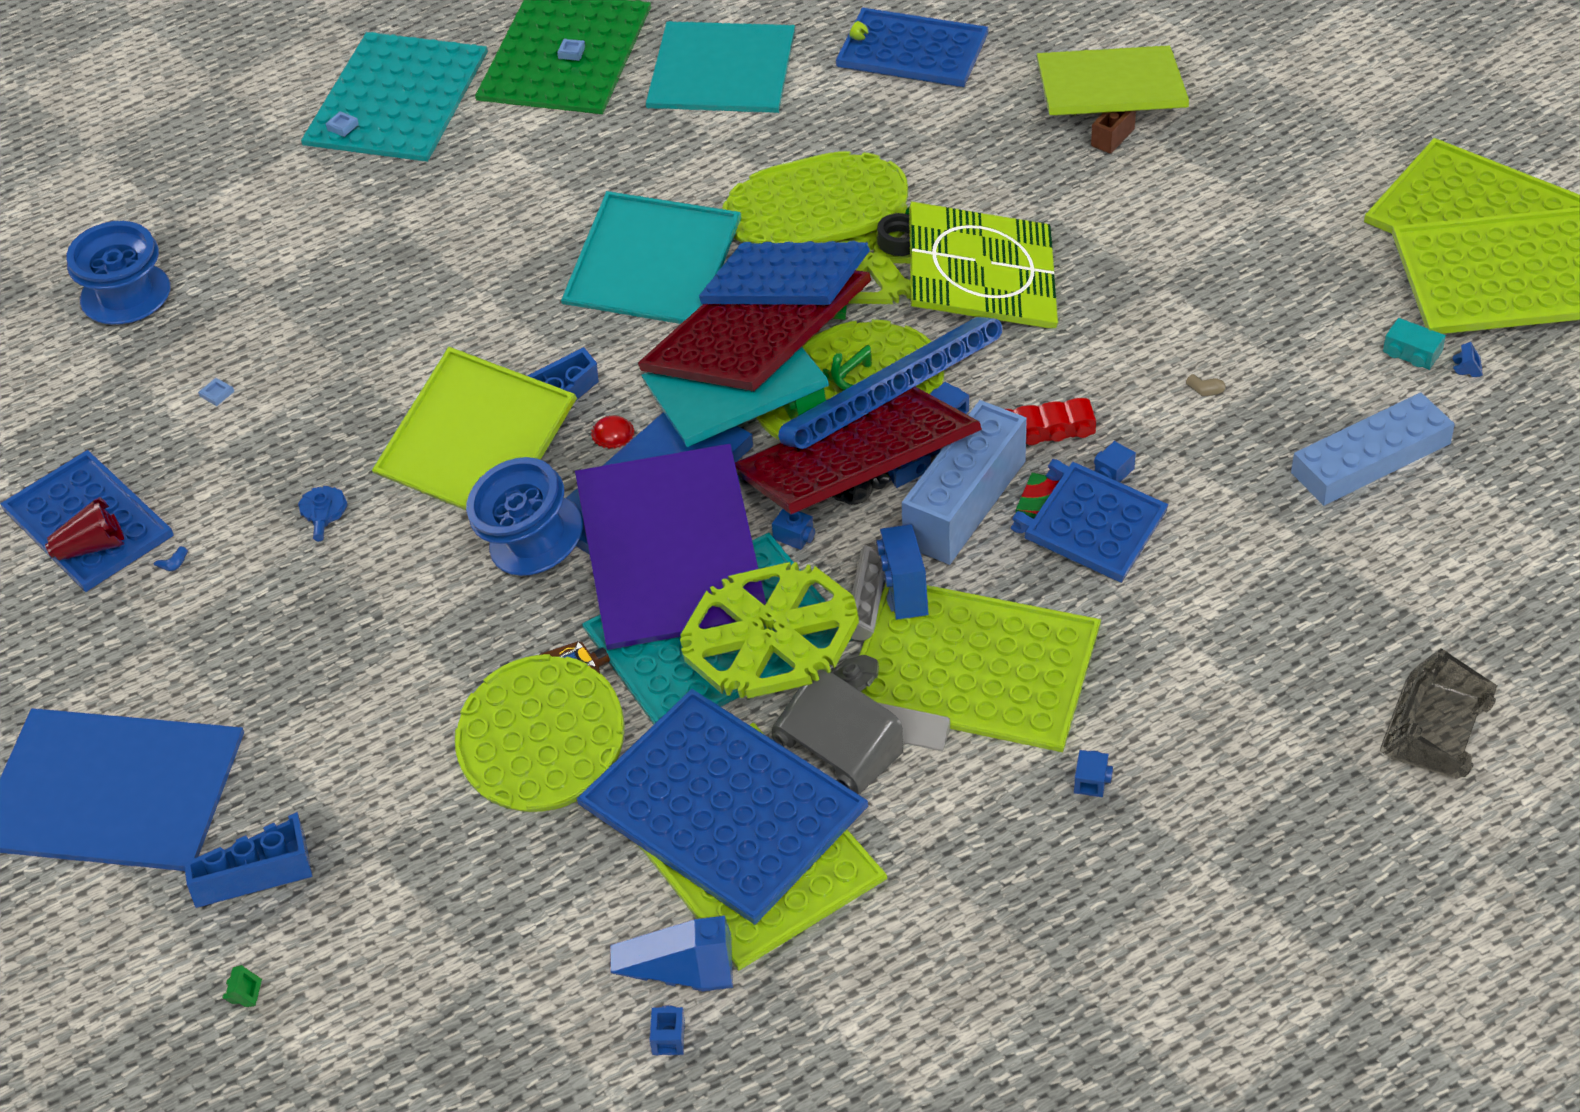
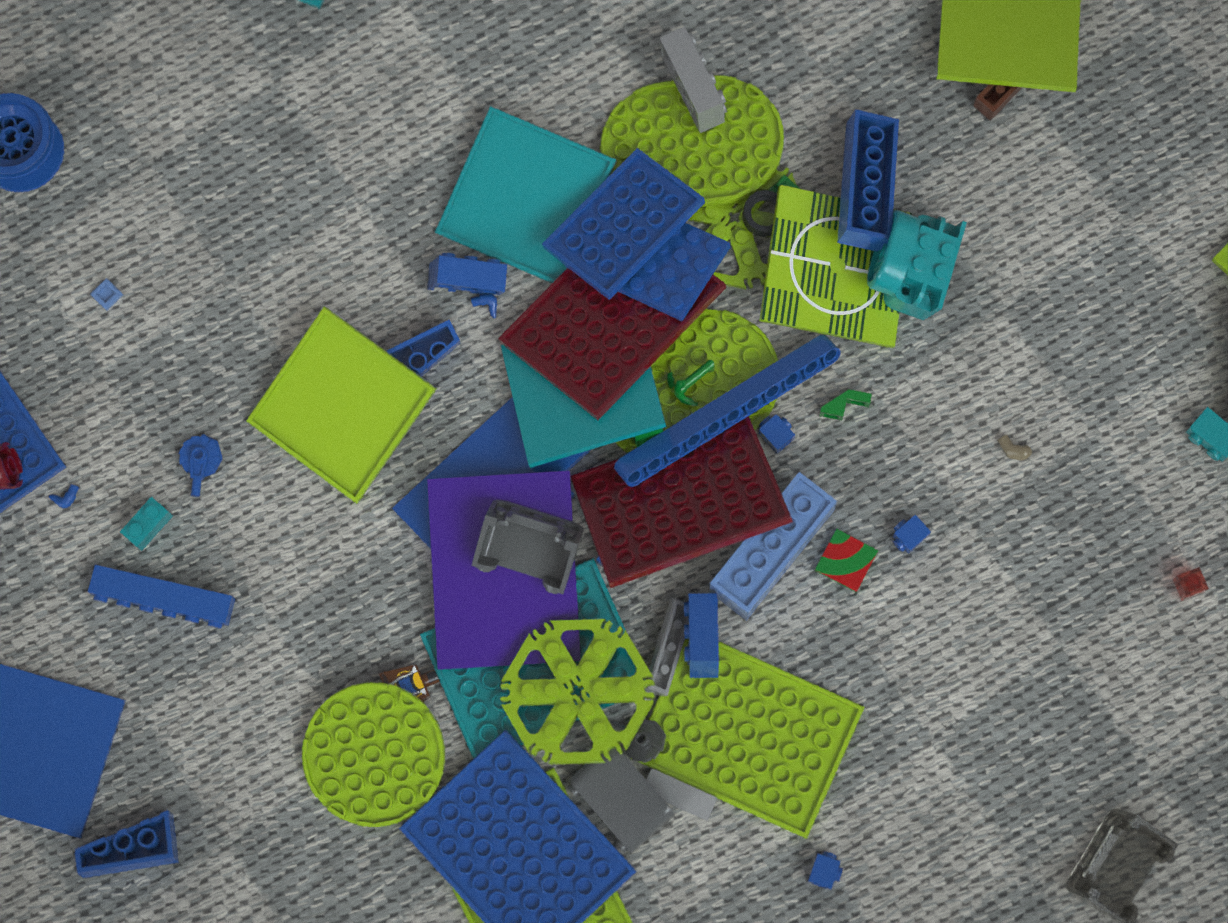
camera: 10 degrees right, 30 degrees up
(264, 564) = (146, 523): none -> teal brick
(283, 626) = (161, 595): none -> blue brick
(524, 516) = (365, 506): blue wheel -> none
(596, 320) = (467, 274): none -> blue wedge
(612, 432) = (467, 409): red hat -> none
(622, 344) = (486, 299): none -> blue animal
(692, 507) = (528, 544): none -> dark grey windscreen
(755, 249) = (623, 223): none -> blue plate
(807, 145) = (693, 79): none -> light grey brick
(999, 193) = (868, 180): none -> blue brick
(1021, 364) = (836, 407): none -> green slope
(1058, 420) = (858, 473): red brick -> none
(1061, 245) = (916, 263): none -> teal brick
(1093, 520) = (880, 598): blue plate -> none
(1372, 448) = (1144, 557): medium blue brick -> none
(1430, 462) = (1190, 584): none -> clear red brick

